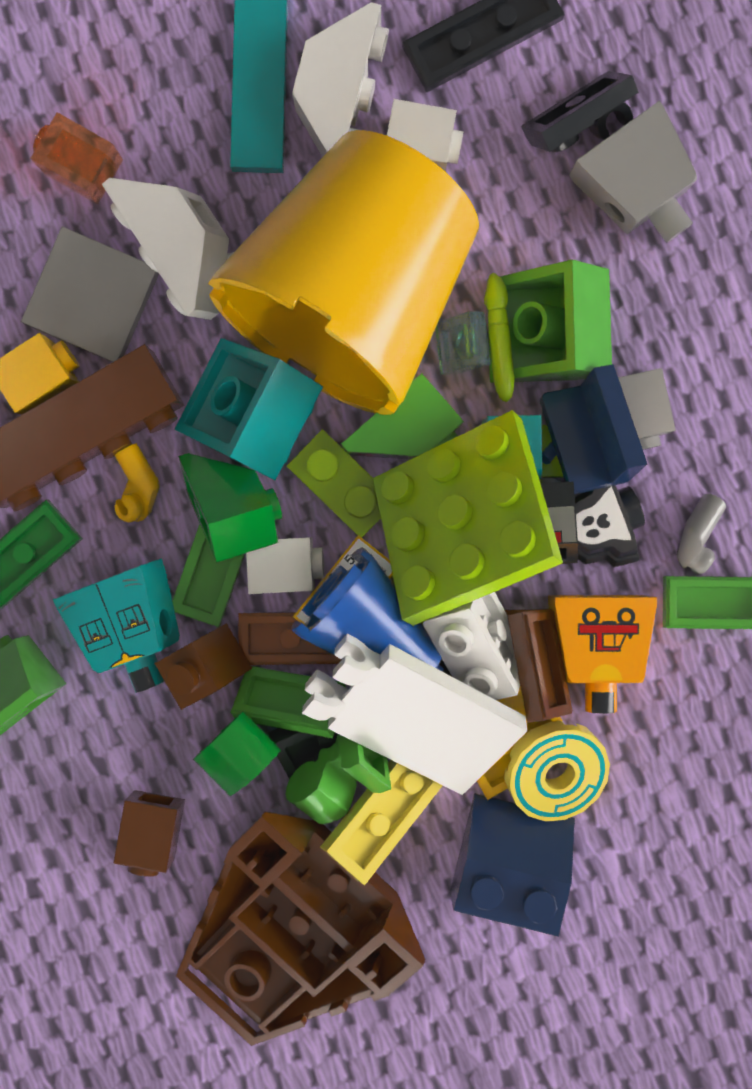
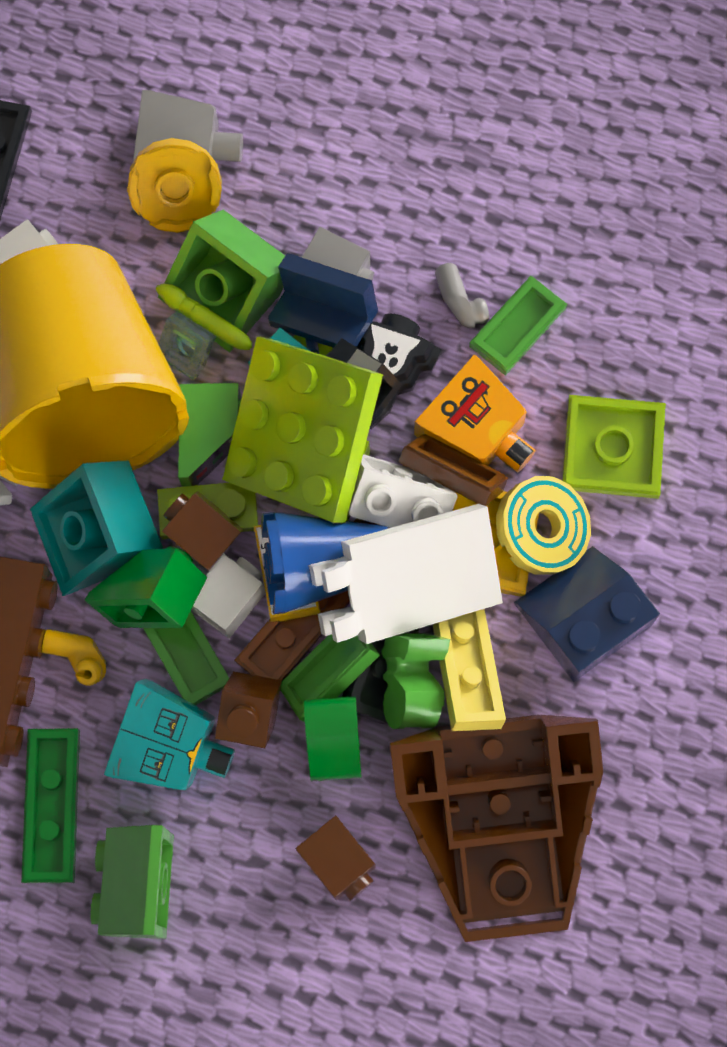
camera: 45 degrees left, 15 degrees down
(313, 502) = (200, 528): none -> reddish brown brick
(587, 107) = (103, 141): black plate -> none
(595, 207) = (174, 184): none -> yellow tile
(675, 767) = (614, 446): none -> lime tile

